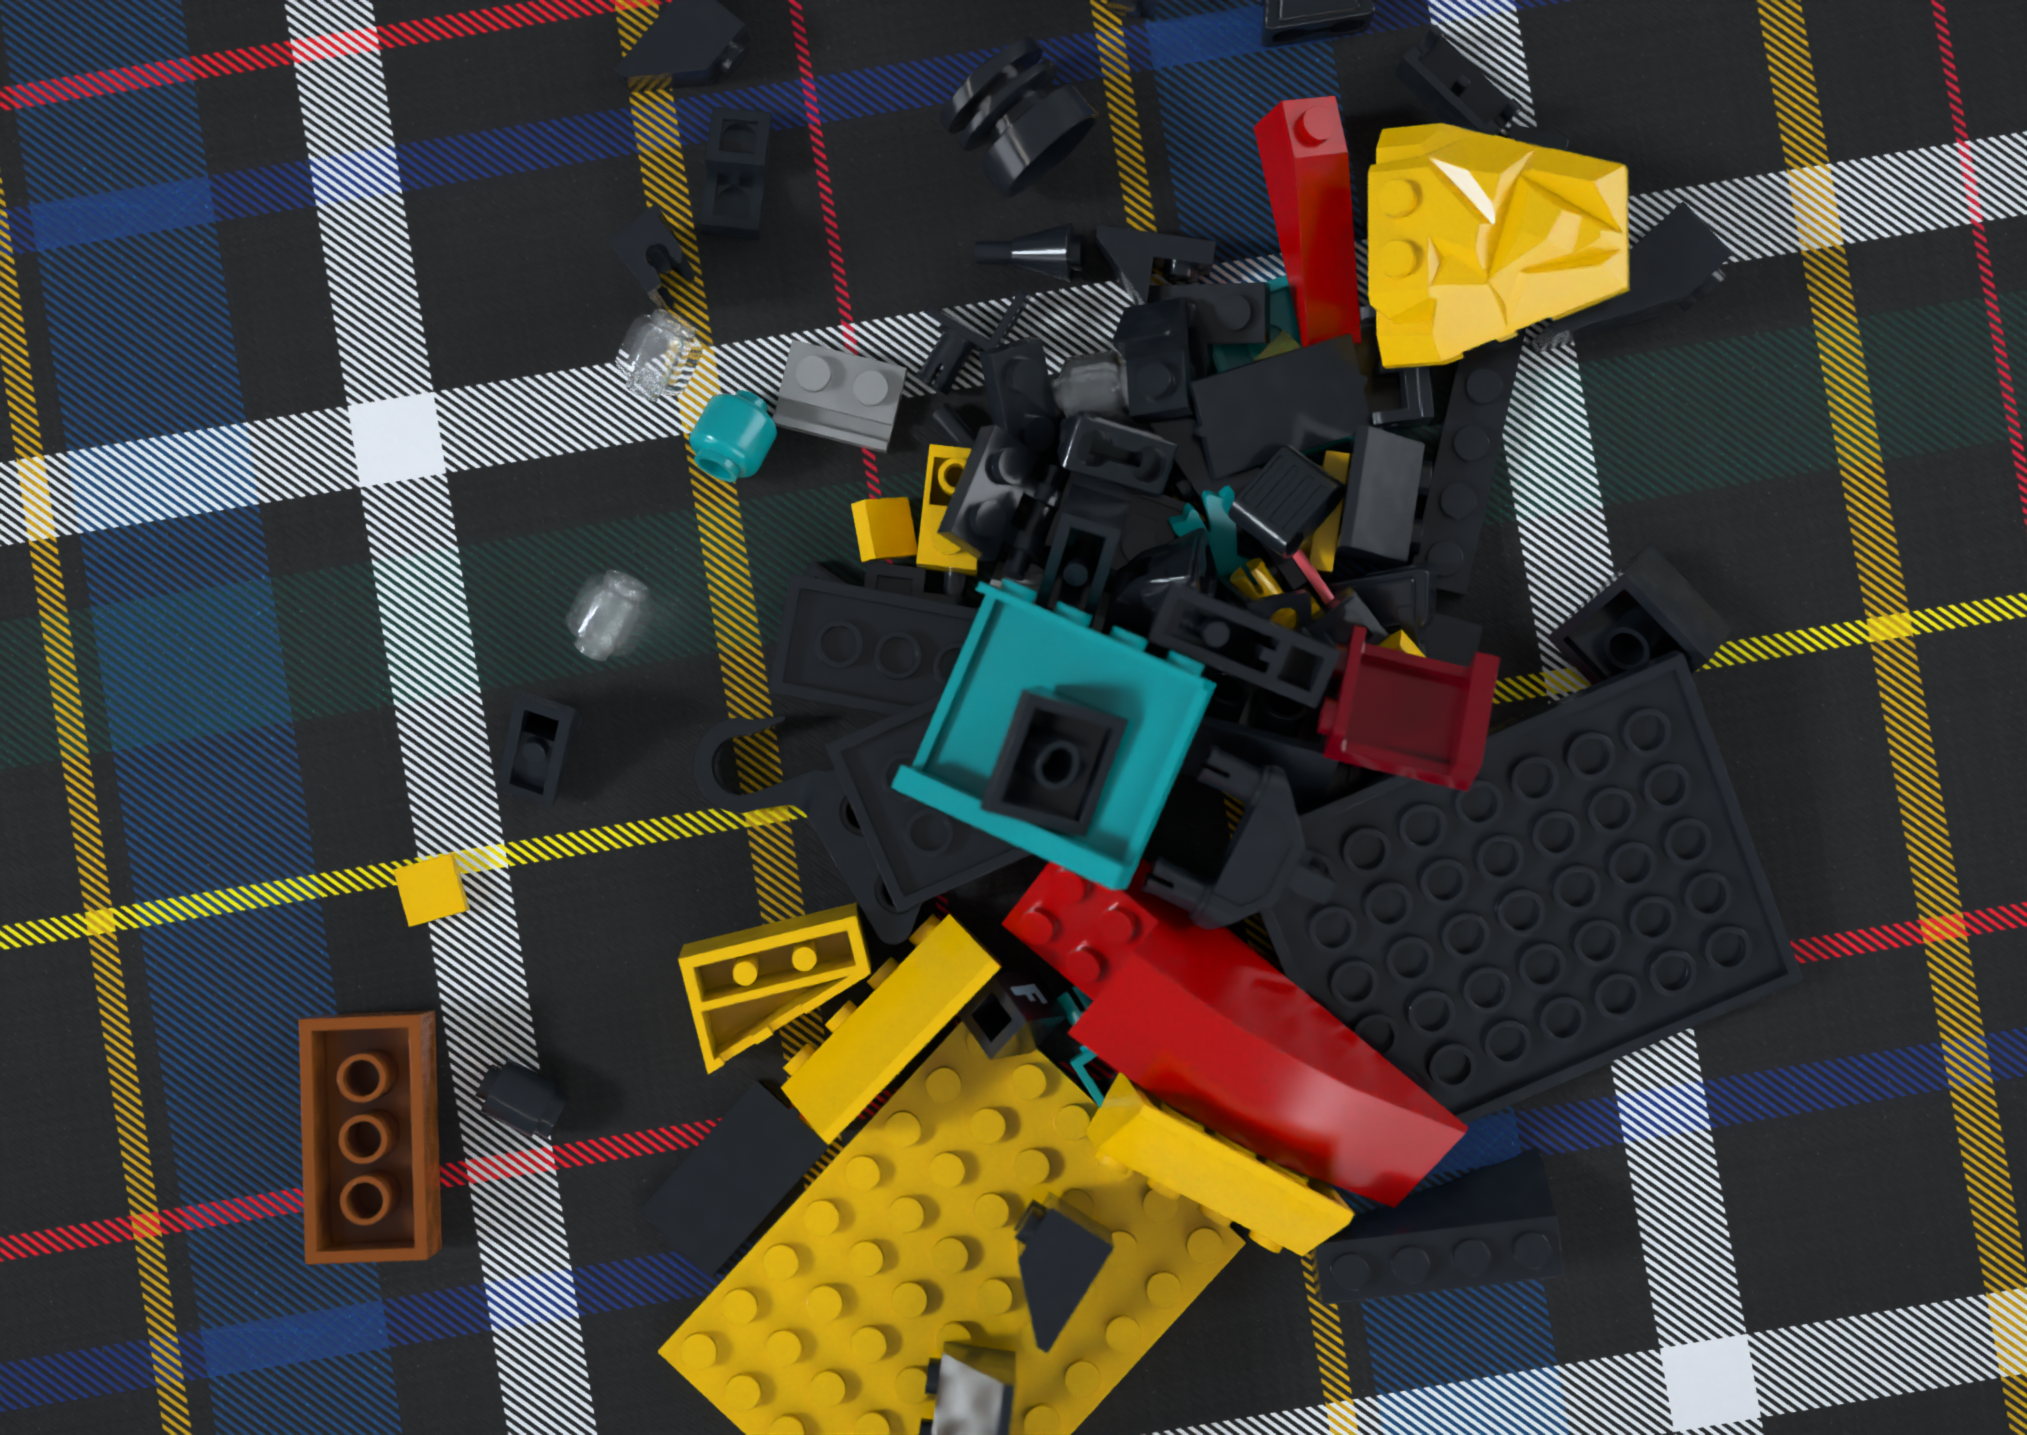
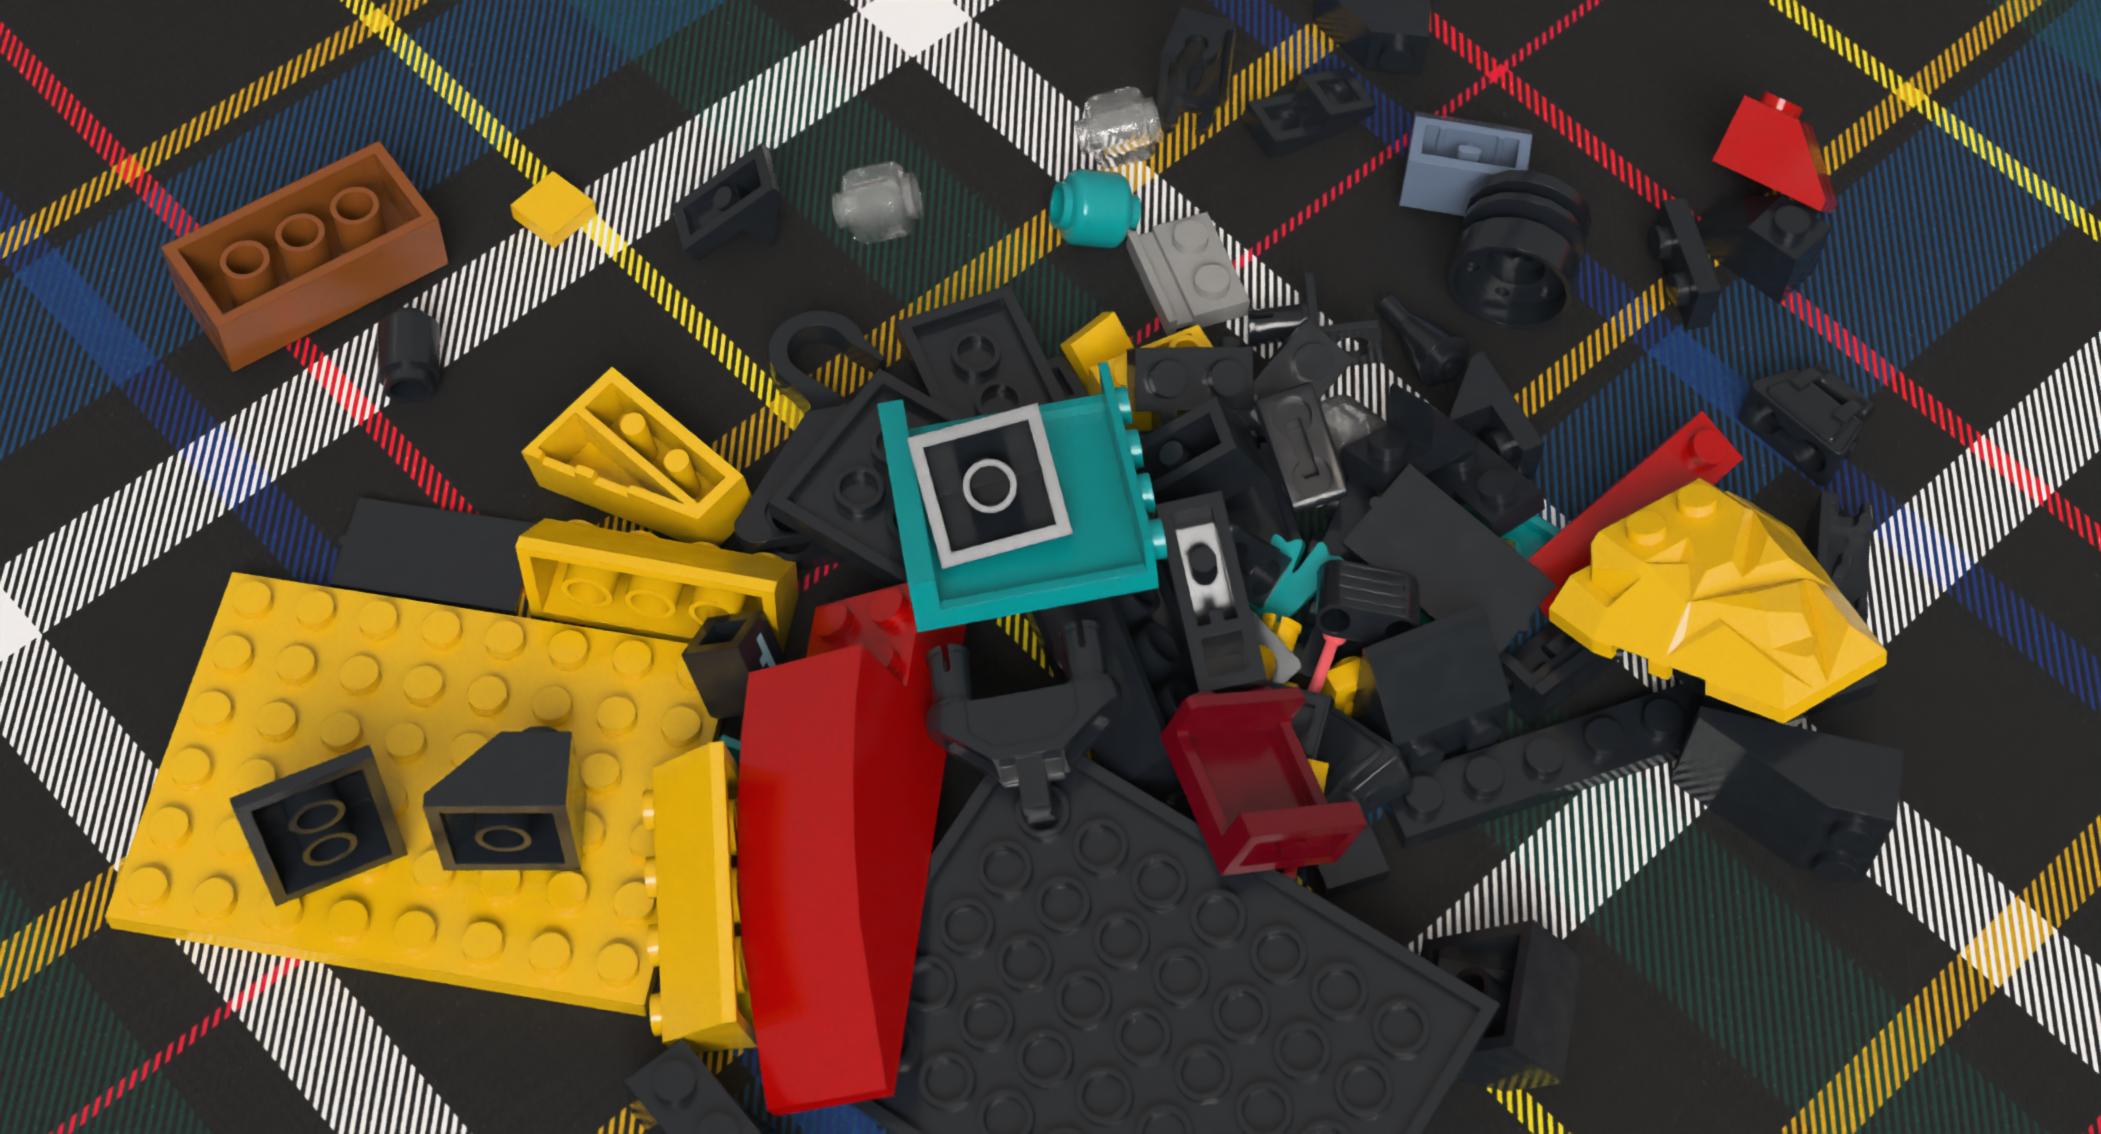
camera: 55 degrees right, 30 degrees down
(884, 81) = (1453, 156): none -> sand blue slope

